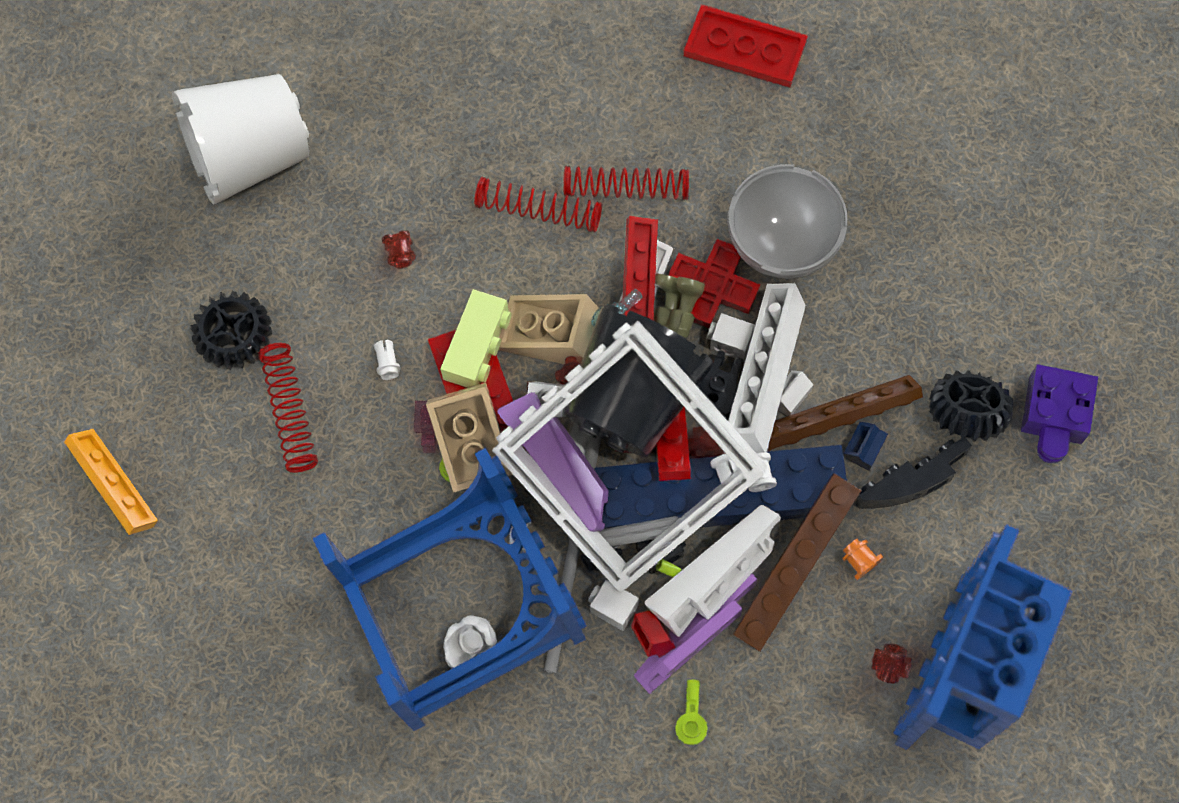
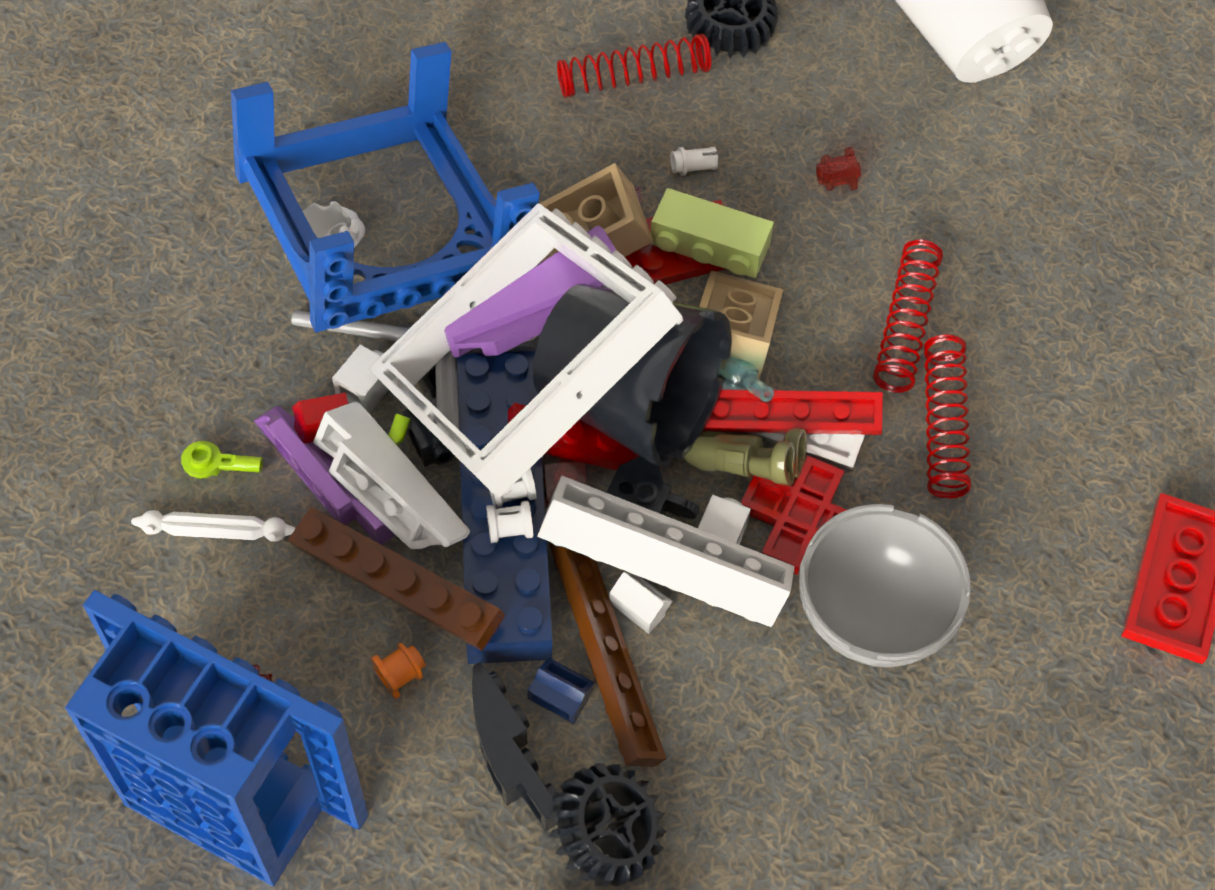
camera: 85 degrees right, 10 degrees down
(750, 712) = (213, 525): none -> white wheel

